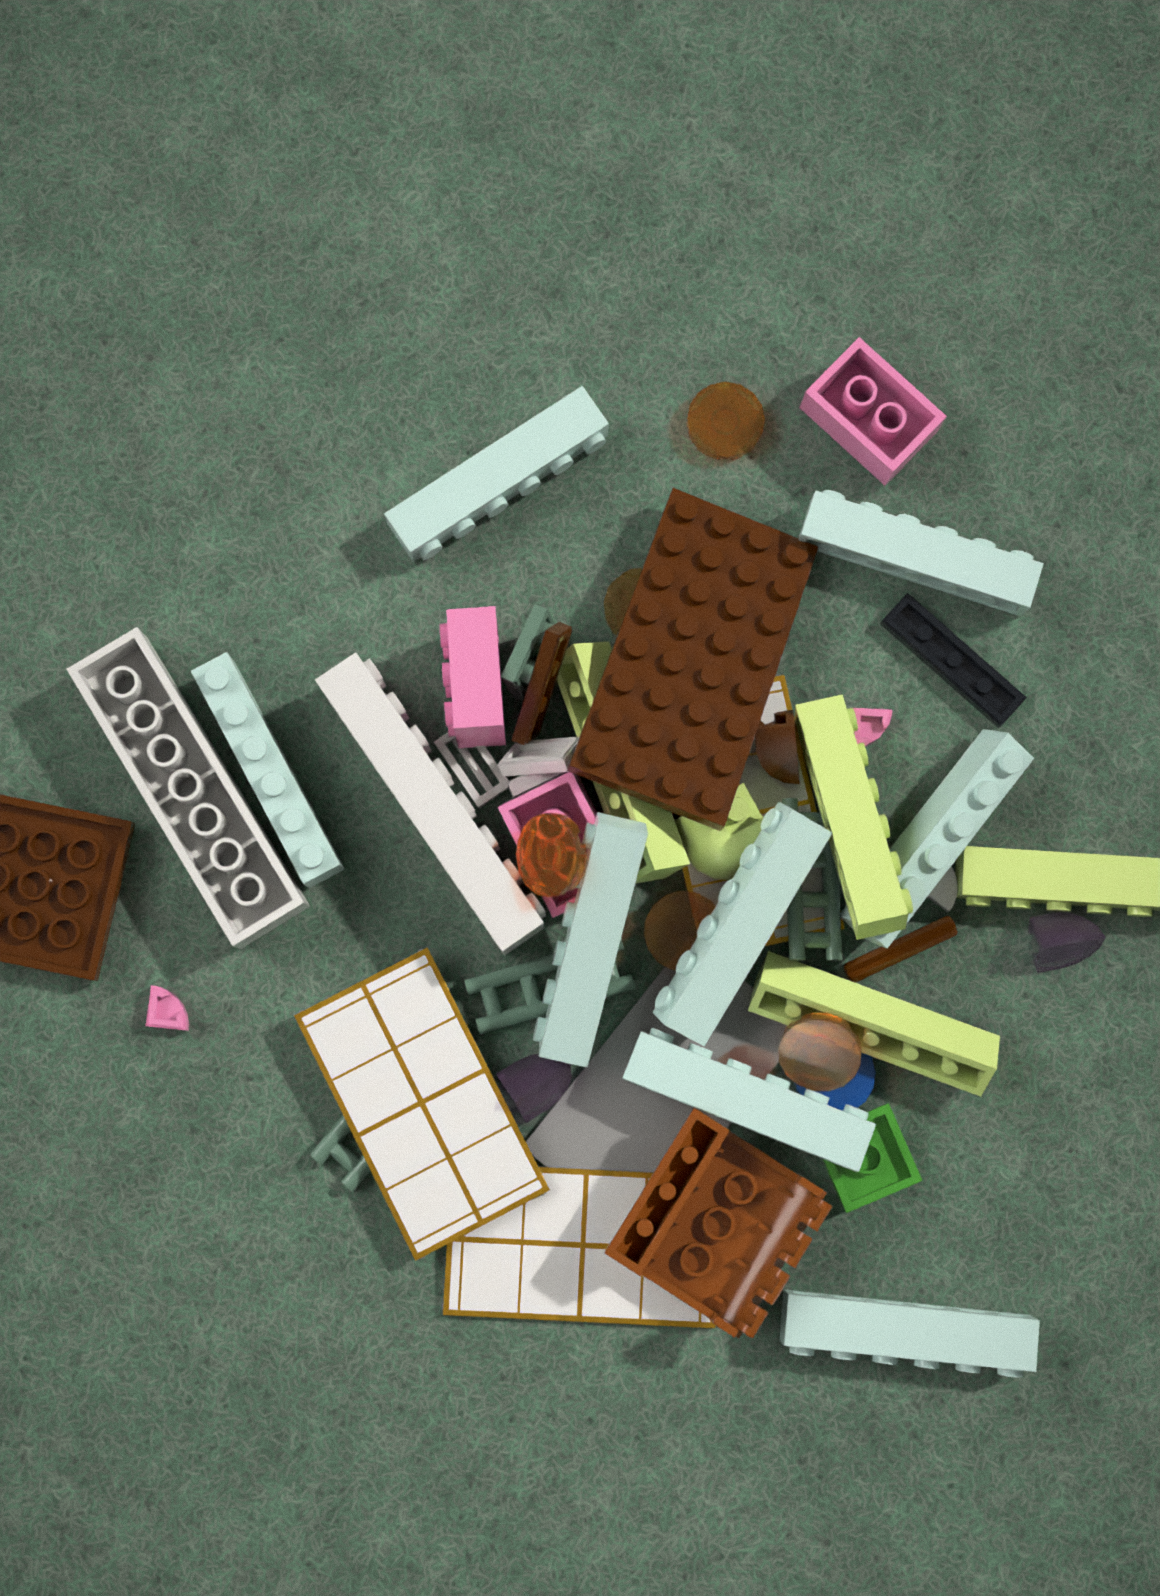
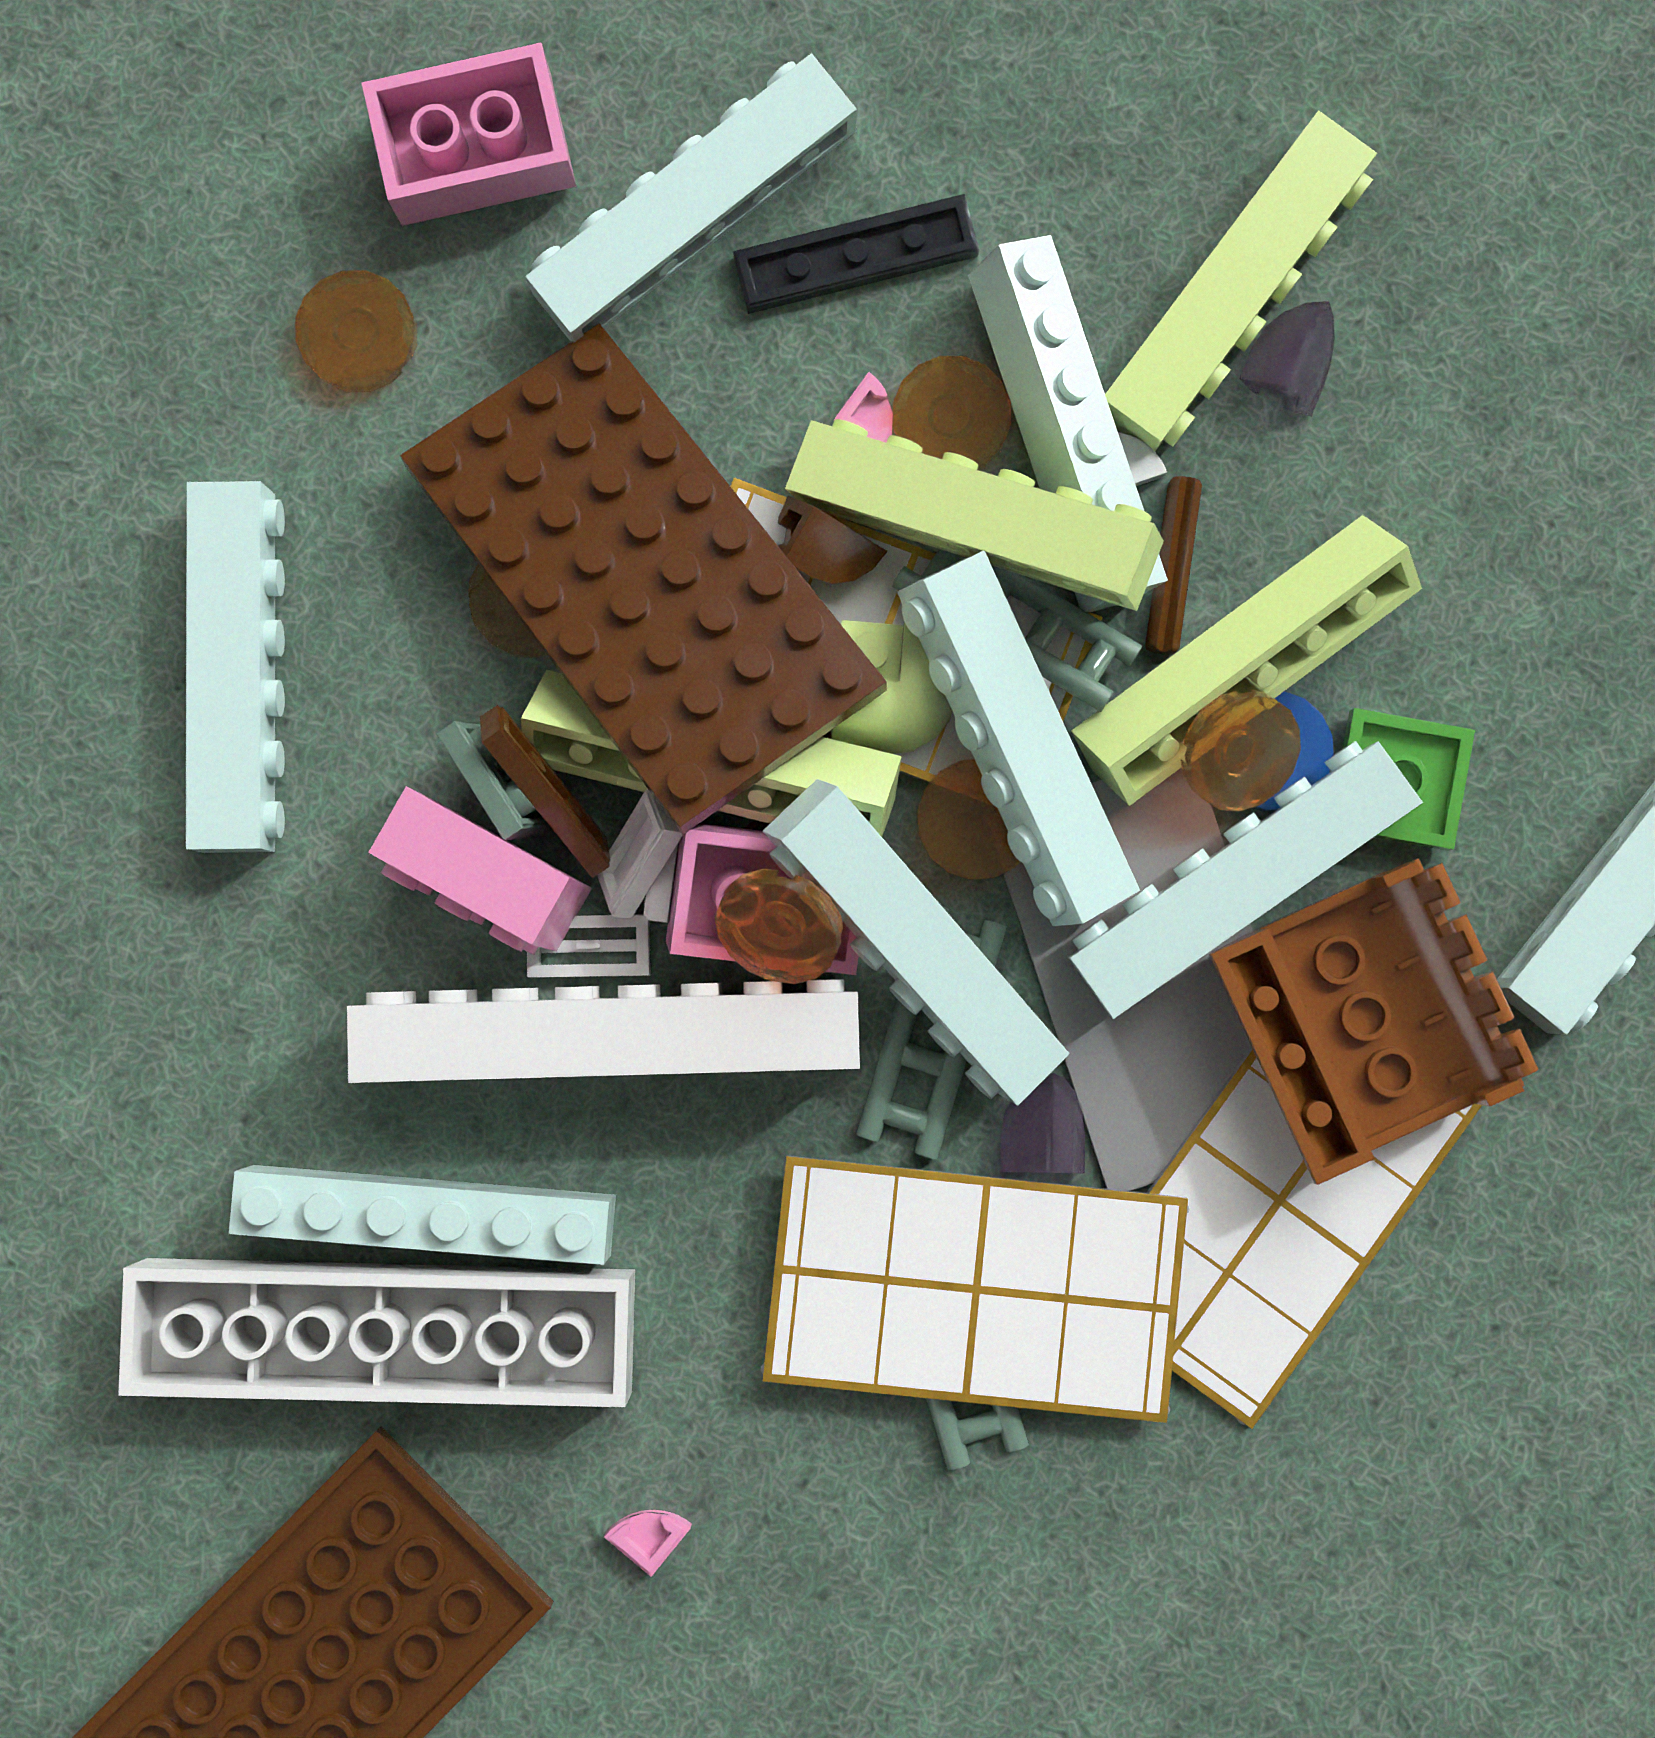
camera: 55 degrees left, 5 degrees up
(903, 770) = (953, 409): none -> clear orange tile

